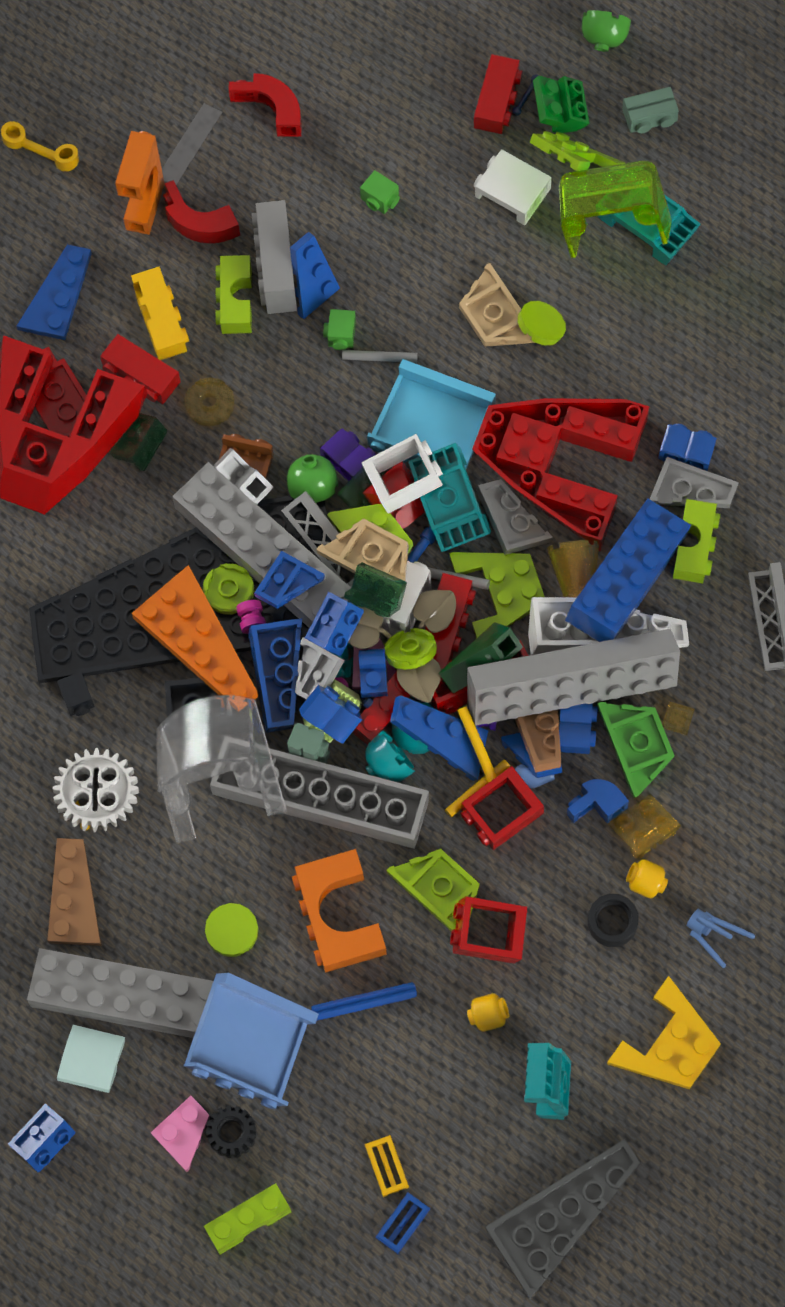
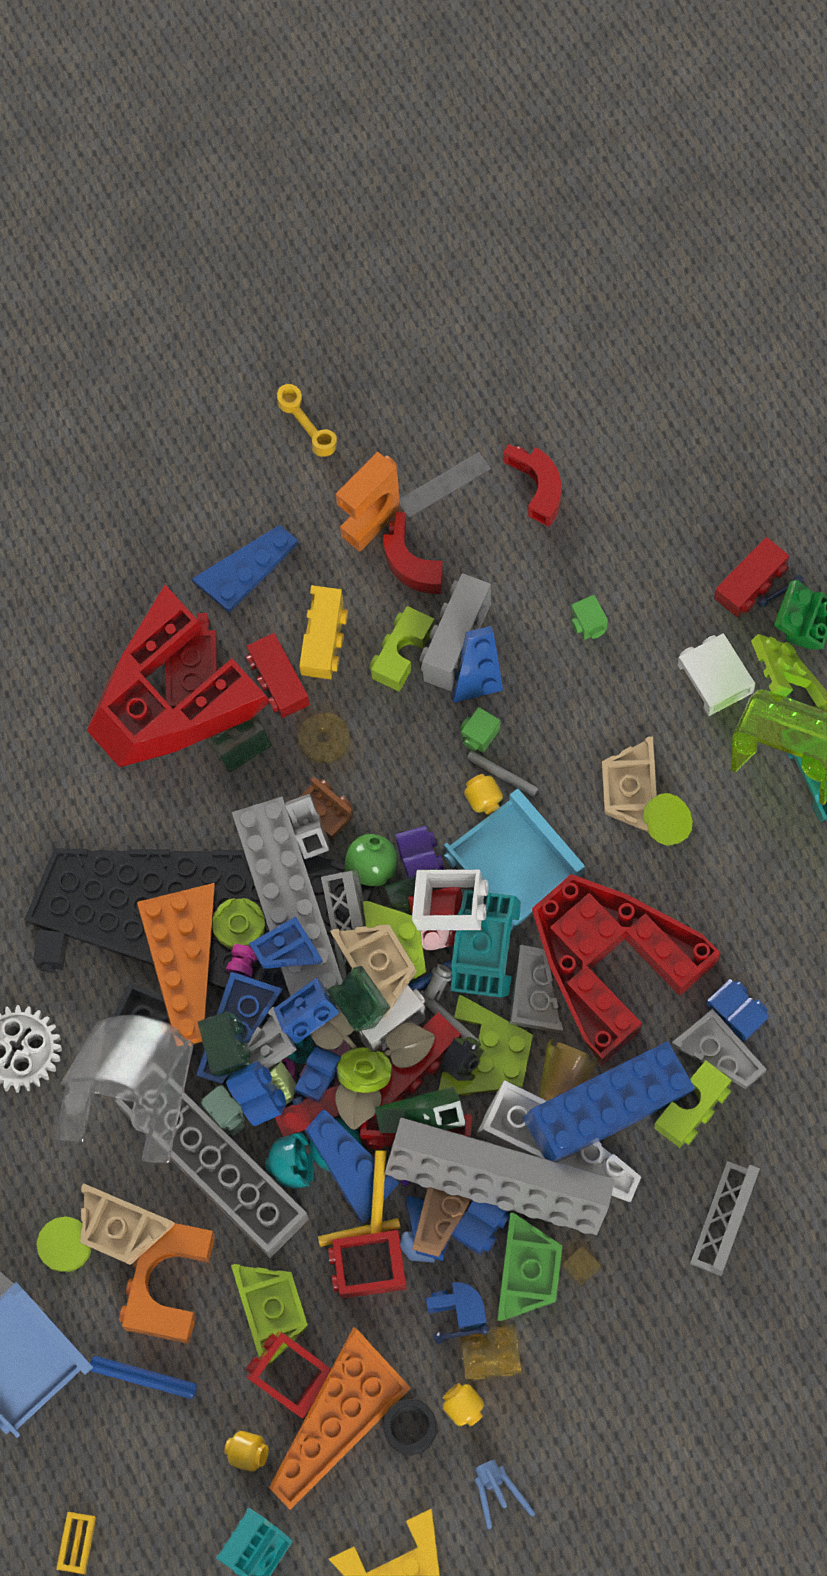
camera: 30 degrees right, 0 degrees up
(272, 887) = (119, 1226): none -> tan wing
(280, 686) = (224, 1043): none -> clear green brick
(374, 379) = (483, 794): none -> yellow head
(426, 549) = (440, 976): none -> light grey pin
(485, 599) = (462, 1058): none -> black brick
(552, 931) = (347, 1407): none -> orange wing
(595, 836) = (439, 1337): none -> dark blue hinge

